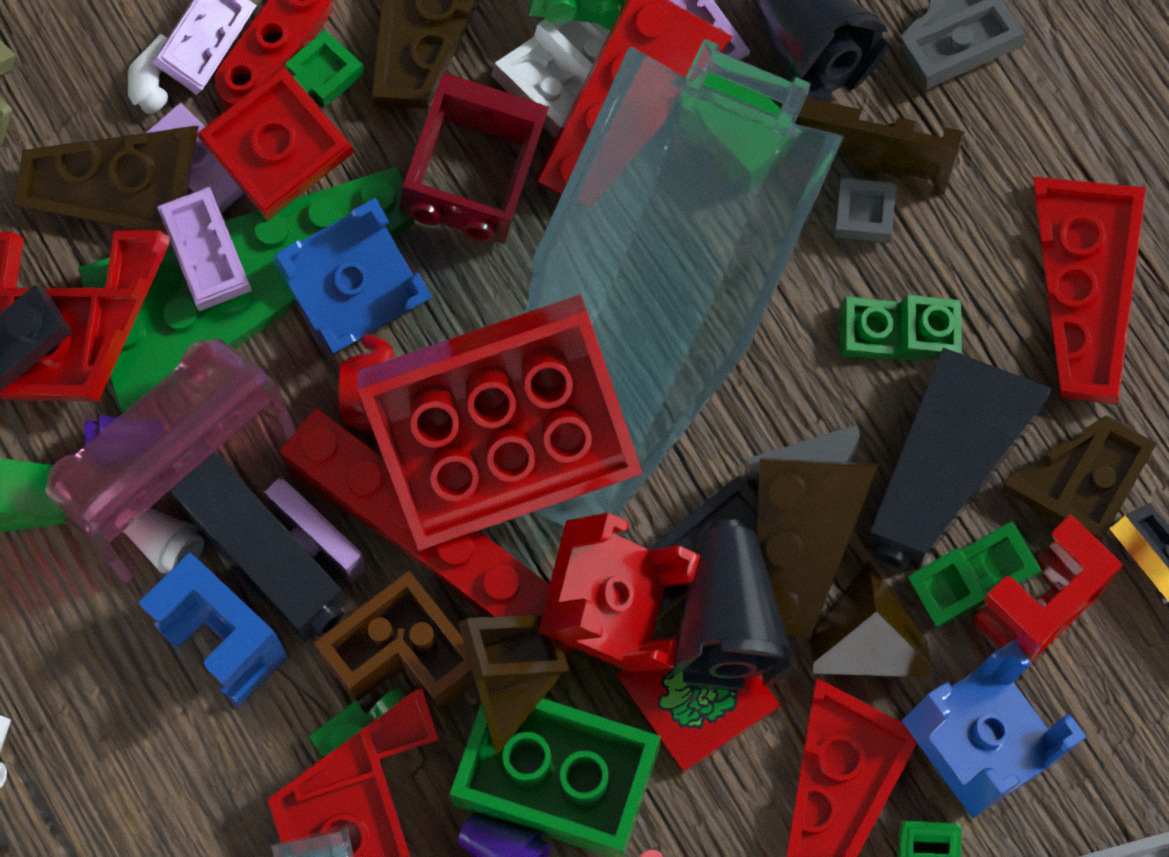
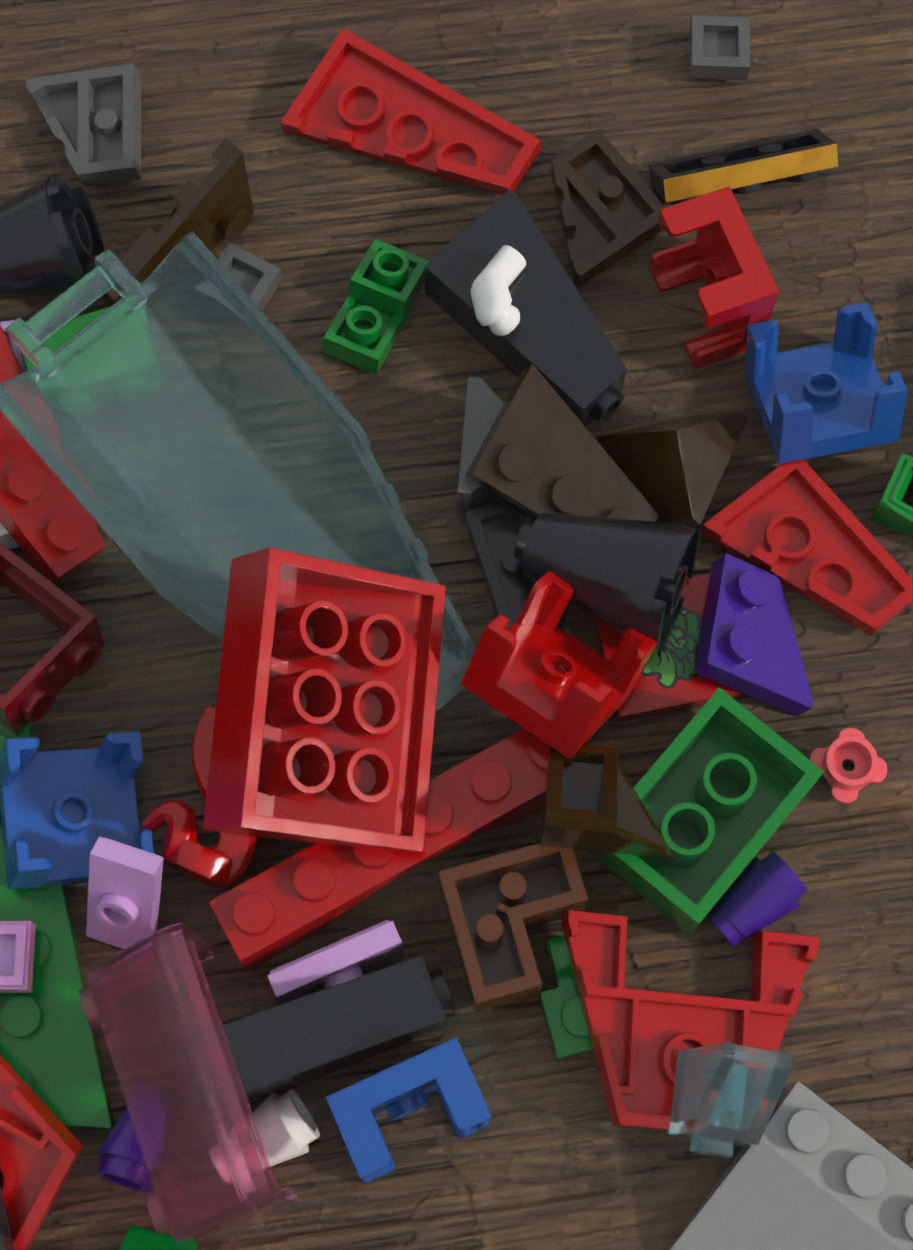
camera: 70 degrees left, 0 degrees up
(298, 343) = (122, 893): none -> lavender plate
(734, 757) = (750, 637): none -> dark purple wing
(936, 410) = (491, 291): none -> white arm
(965, 576) = (654, 343): green slope -> none

